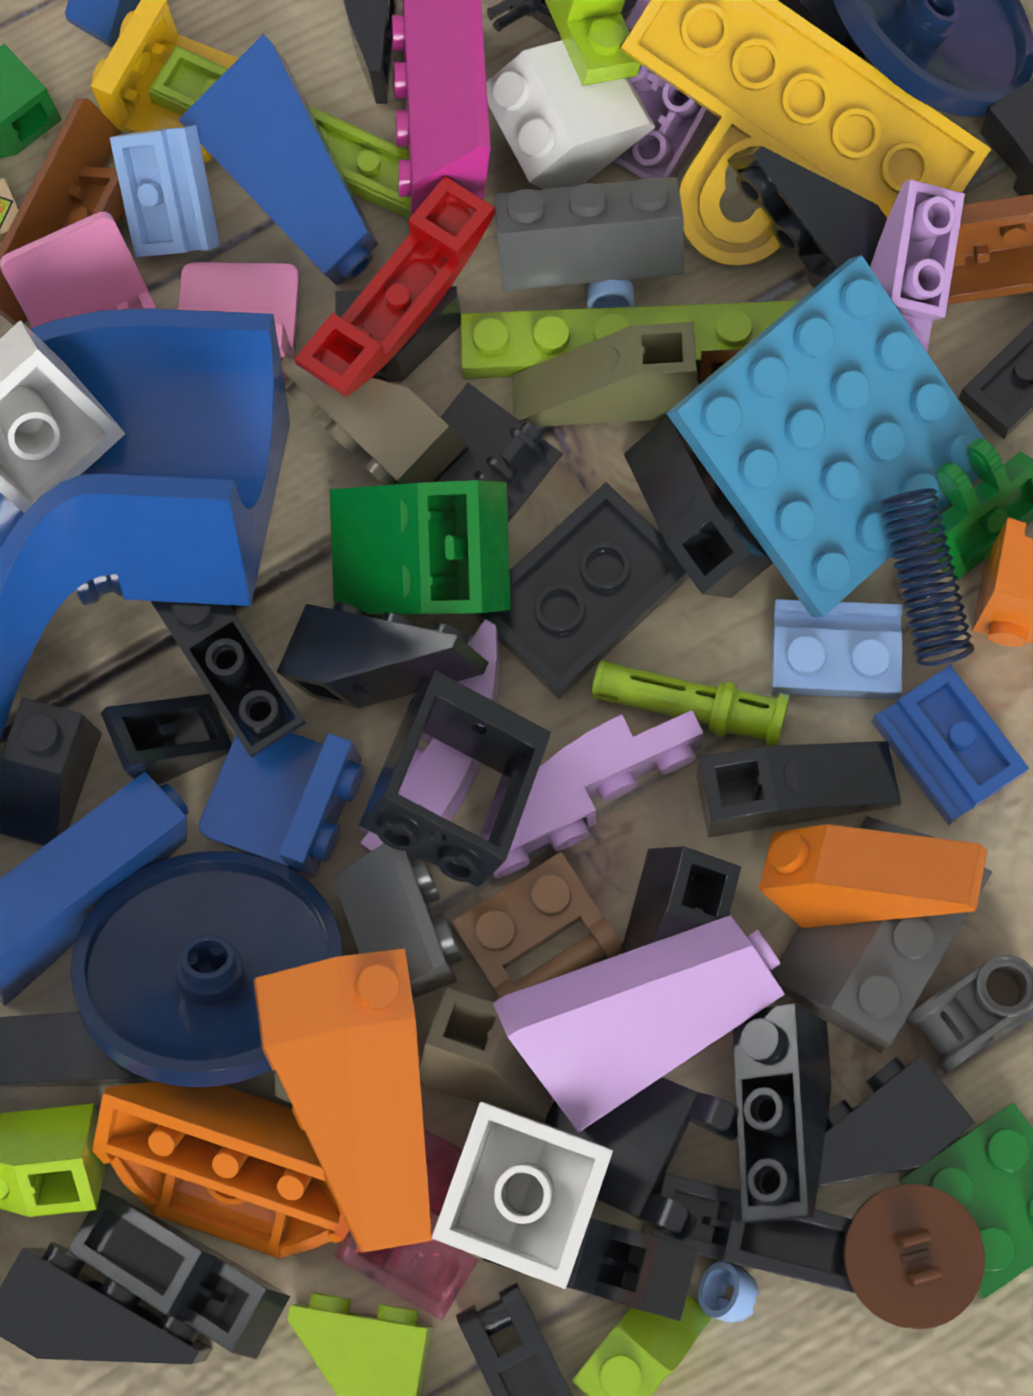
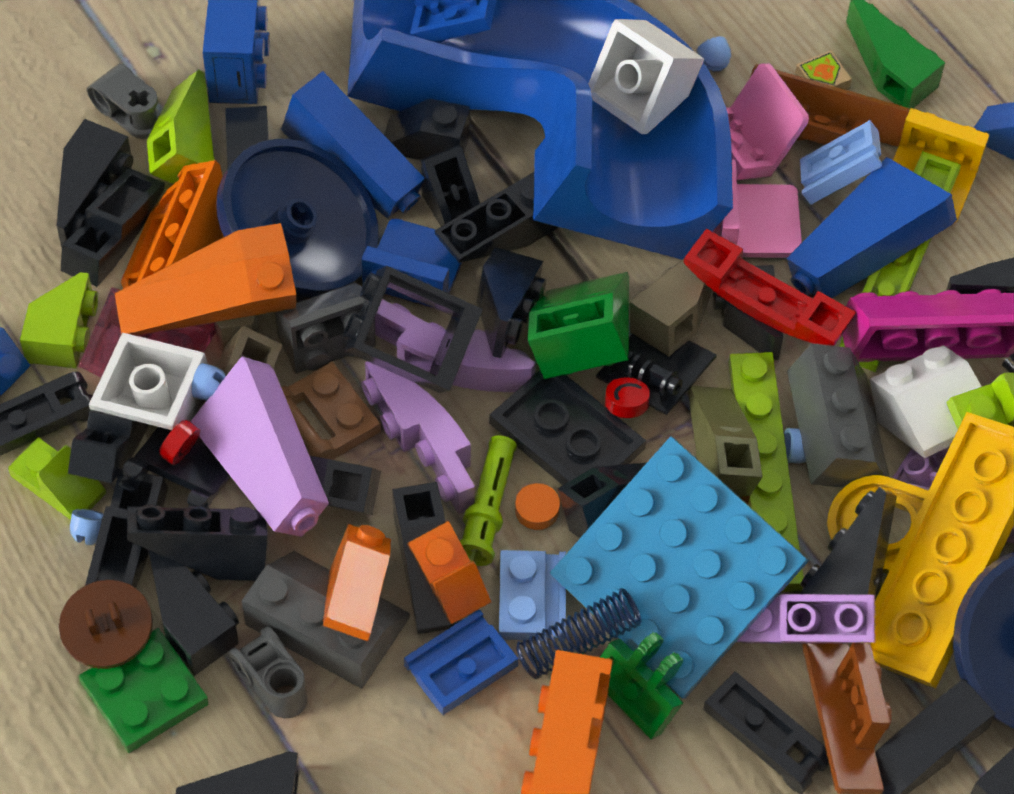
camera: 75 degrees right, 15 degrees down
(521, 1101) = (206, 381): none -> light blue hinge
(541, 500) = (627, 397): none -> red tile
(630, 1146) = (179, 442): none -> red tile
(697, 637) = (537, 506): none -> orange tile
(832, 748) = (450, 572): none -> orange slope

